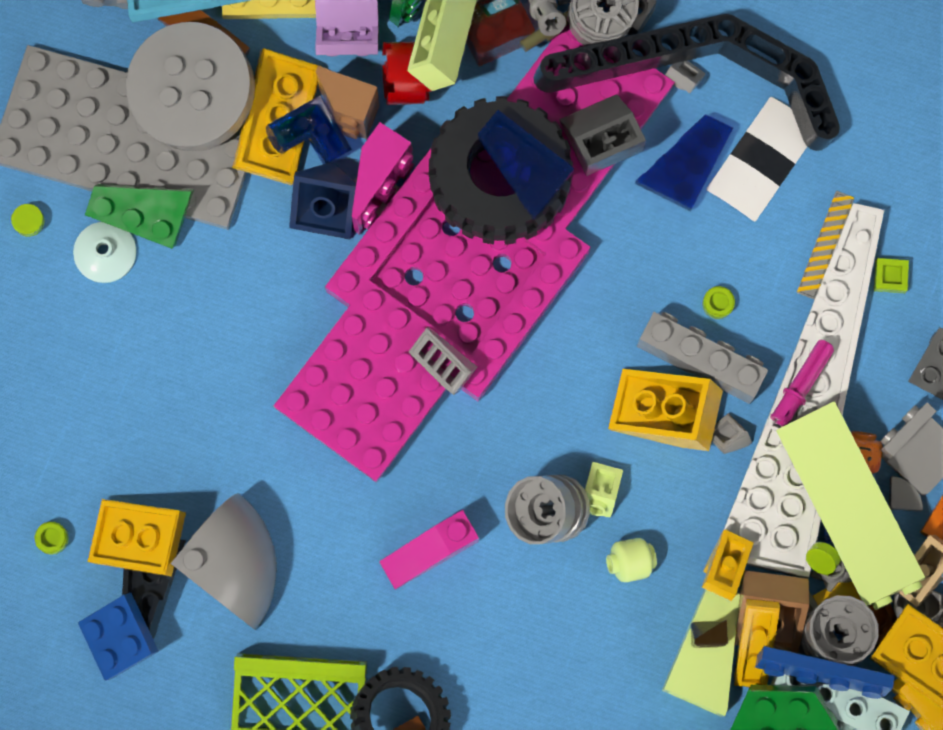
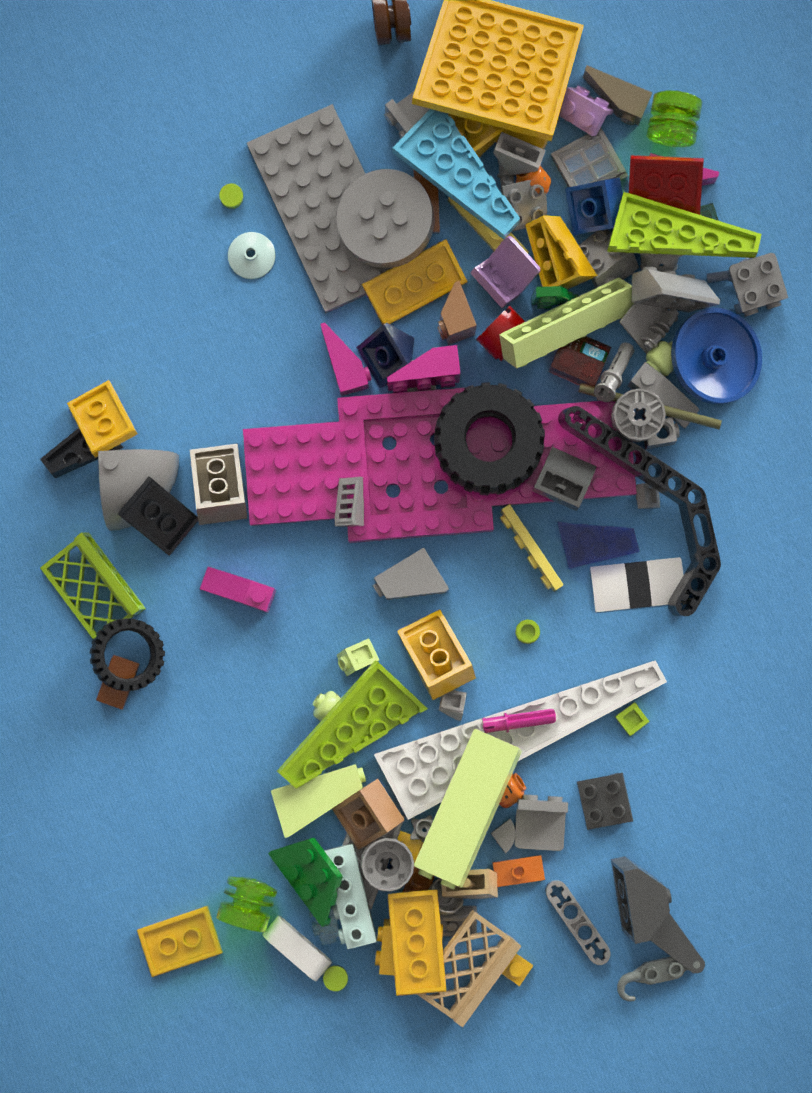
camera: 50 degrees right, 5 degrees up
(51, 538) = (63, 371): lime tile -> none
(118, 636) = (38, 457): blue plate -> none
(146, 212) = (291, 256): green wing -> none
(287, 563) = (158, 516): none -> black tile
(298, 251) = (346, 365): none -> dark pink slope
(306, 478) = (218, 484): none -> dark tan slope
(313, 123) = (427, 308): clear blue brick -> none
(525, 162) = (500, 451): clear blue wing -> none
(547, 509) = (315, 636): light grey wheel -> none
(568, 368) = (410, 578): none -> light grey slope
(653, 230) = (525, 540): none -> light yellow plate
(667, 543) = (358, 719): none -> lime wing
(702, 357) = (484, 650): light grey brick -> none
(709, 634) = (322, 789): dark brown slope -> none
(727, 565) = (372, 766): yellow slope -> none
(757, 631) = (341, 821): yellow tile -> none
(813, 670) = (349, 865): blue plate -> none
(823, 558) = (424, 818): lime tile -> none
(825, 245) = (618, 664): sticker -> none

